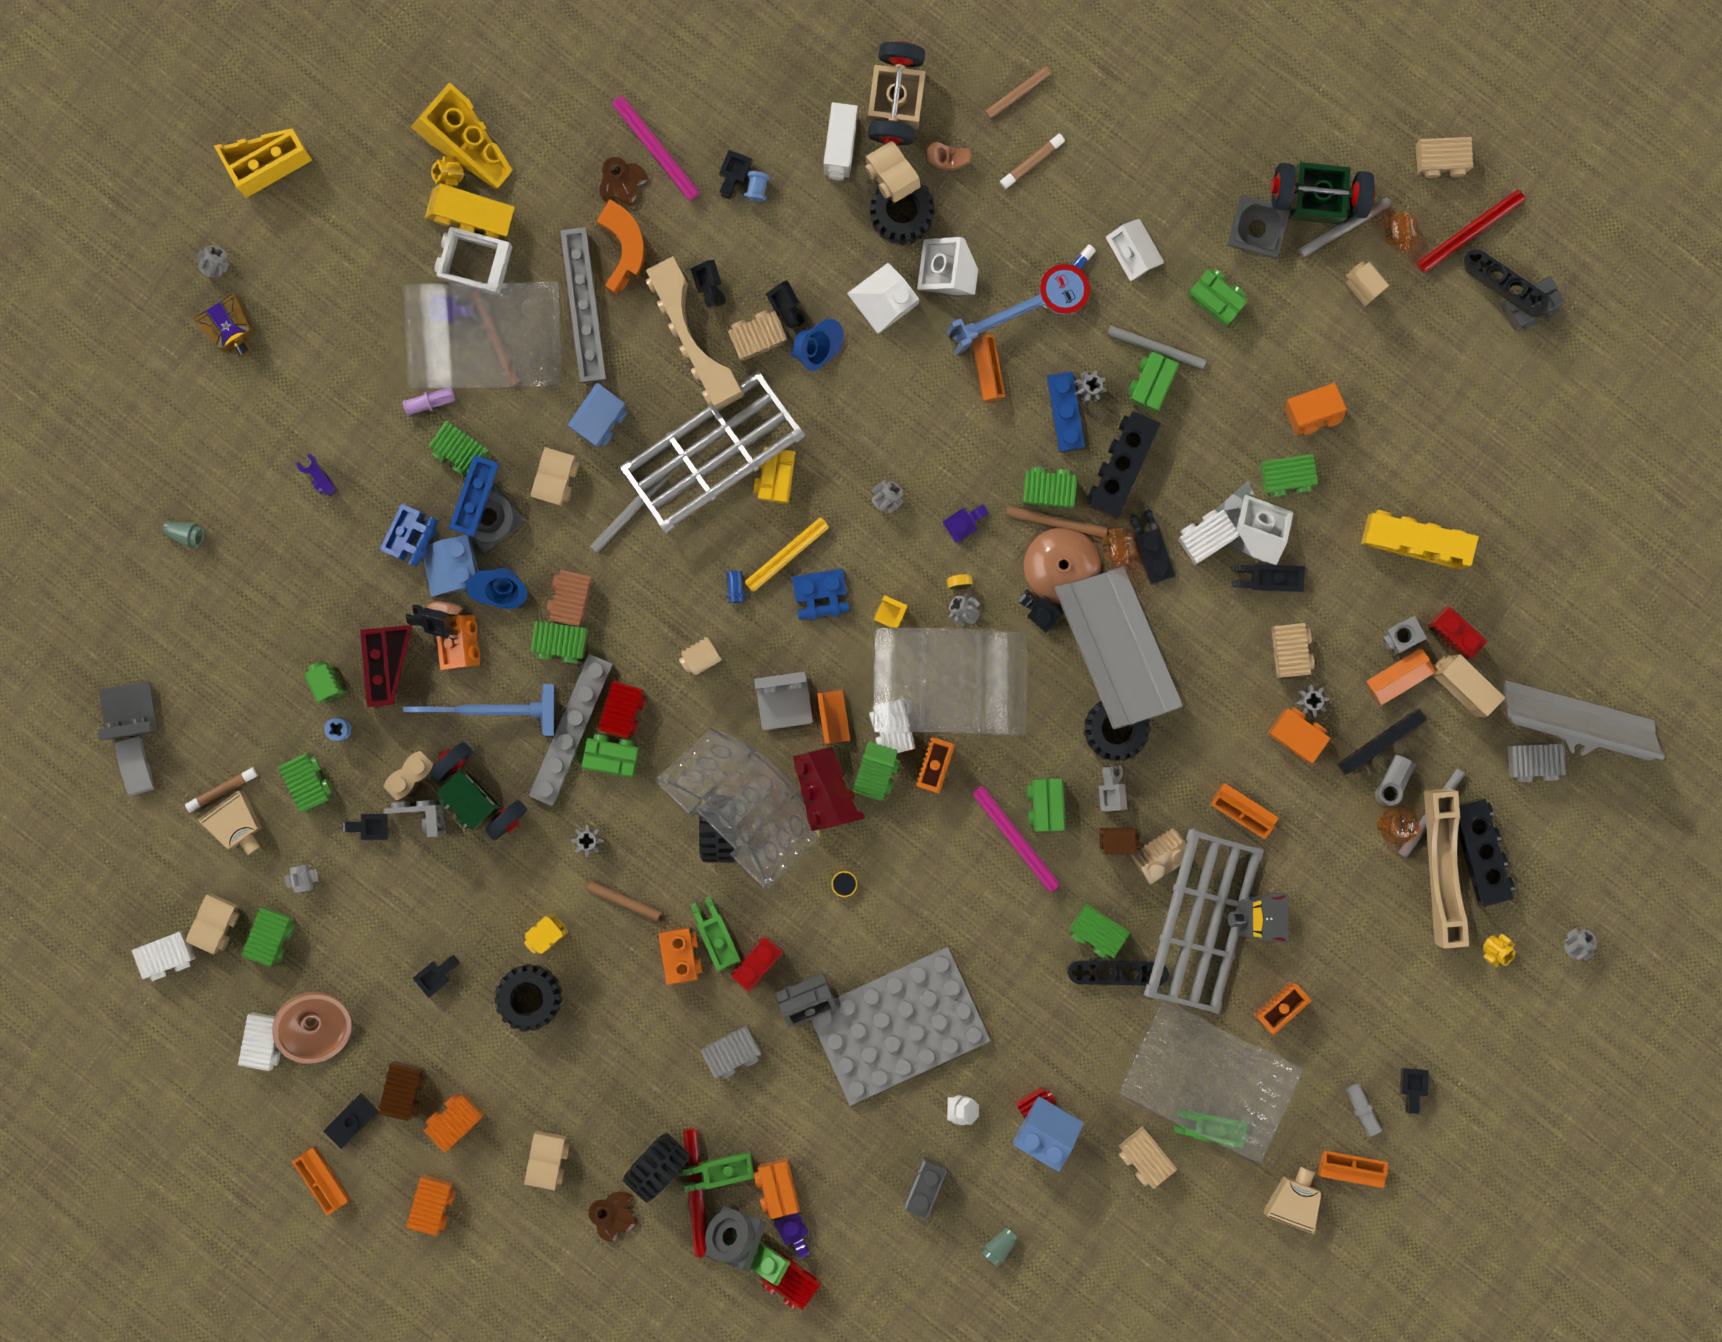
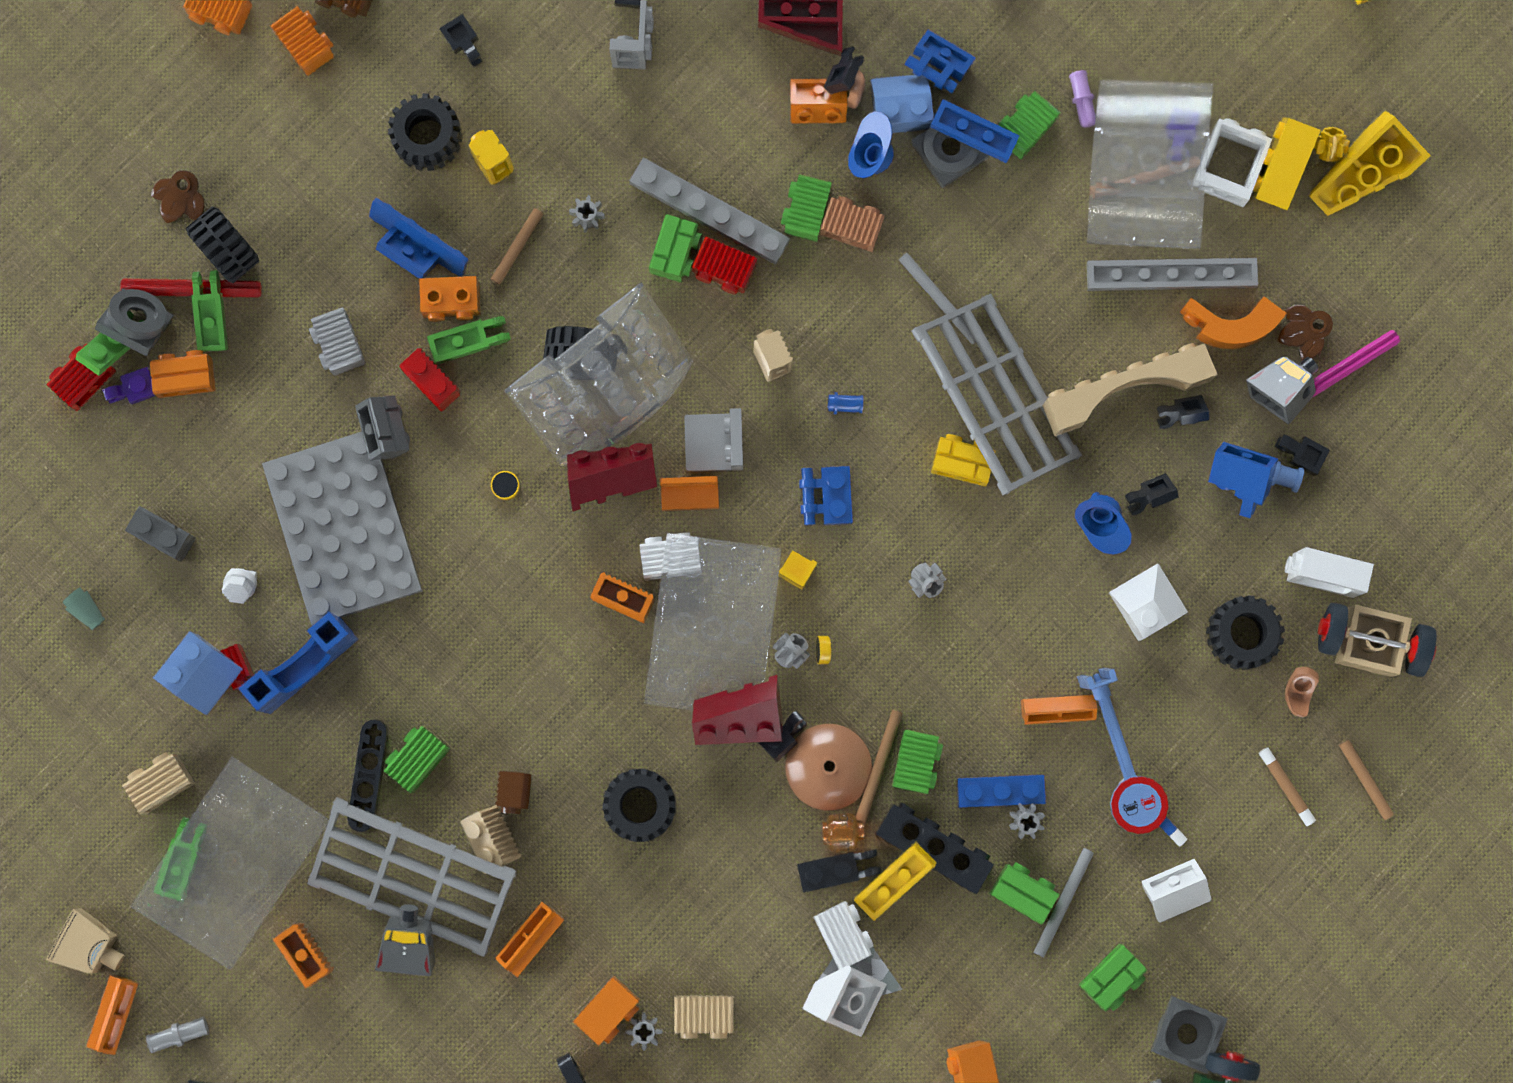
camera: 90 degrees right, 5 degrees down
(406, 780) = (676, 32): tan brick -> none
(469, 798) = (647, 93): brick -> none
(541, 710) = (734, 183): medium blue piece -> none
(545, 1160) = (248, 132): tan brick -> none
(554, 476) = (987, 222): tan brick -> none
(598, 416) = (1048, 274): medium blue slope -> none
(635, 995) = (412, 245): none -> blue bracket
(677, 195) = (1284, 387): none -> torso
(757, 335) = (1120, 458): tan brick -> none
(759, 223) = (1246, 473): none -> blue hinge
(787, 554) = (874, 464): yellow axle -> none
(875, 771) = (623, 530): bright green brick -> none
(892, 172) = (1288, 623): tan brick -> none
(947, 267) = (1176, 676): white slope -> none
(962, 524) = (888, 660): dark purple plate -> none
(1016, 839) = (530, 680): dark pink axle -> none
(1029, 1044) = (272, 688): none -> blue arch
(1030, 649) = (739, 716): none -> dark red wedge
(1047, 804) = (564, 718): bright green brick -> none
(1112, 793) = (567, 791): light grey plate -> none
(1118, 648) = (728, 816): light grey hinge -> none
(1157, 496) = (895, 881): none -> yellow tile
(1271, 577) = (788, 1002): black hinge -> none
(1288, 474) = (903, 1035): bright green brick -> none

